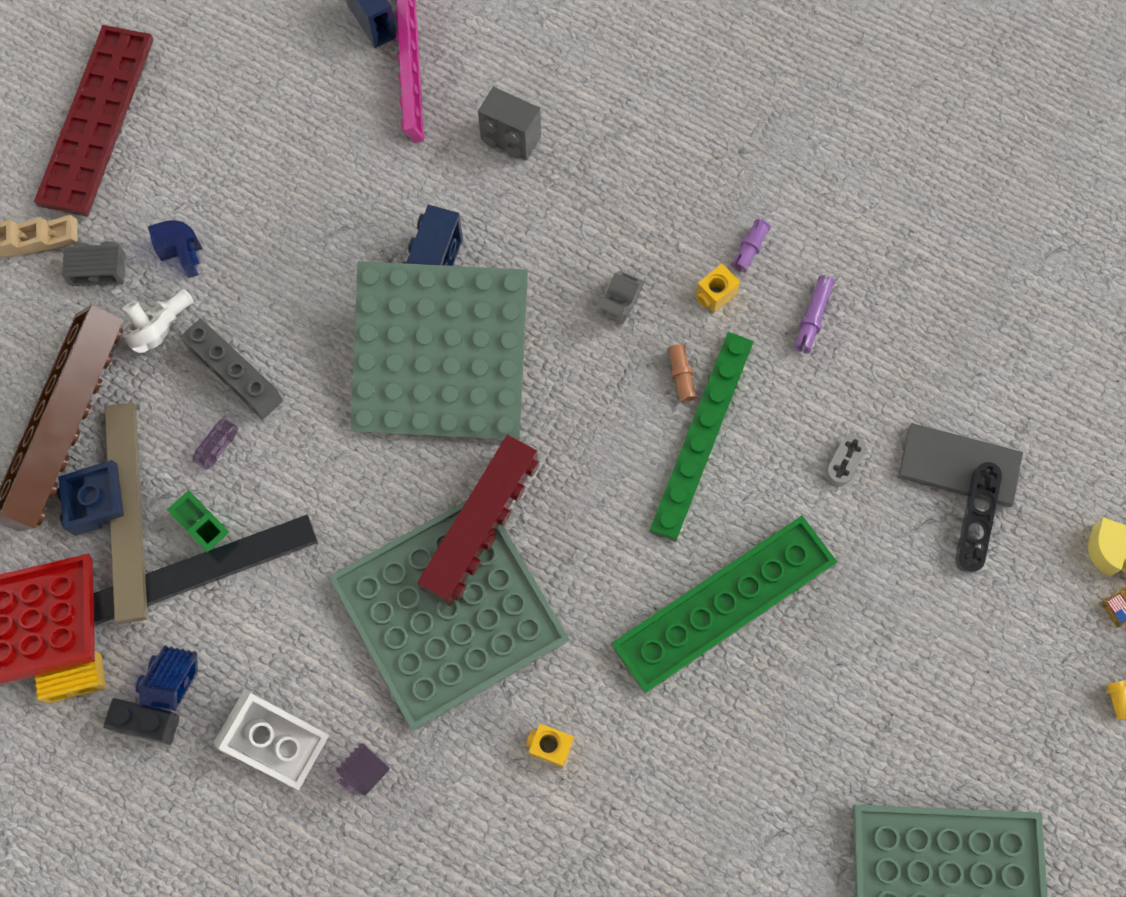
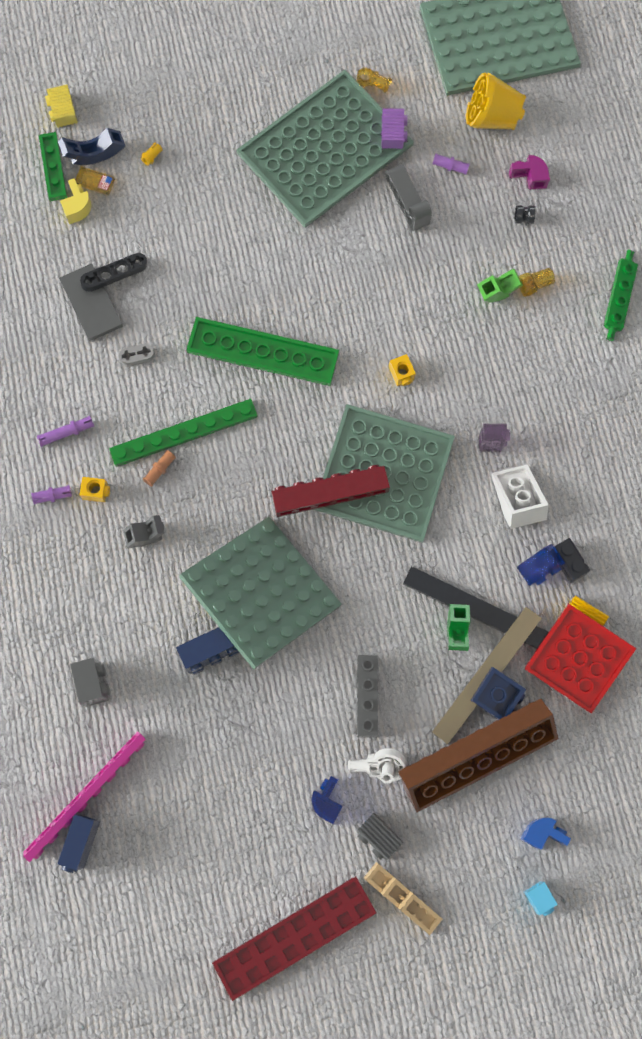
camera: 135 degrees left, 5 degrees up
(215, 443) = (412, 665): clear purple beam -> none

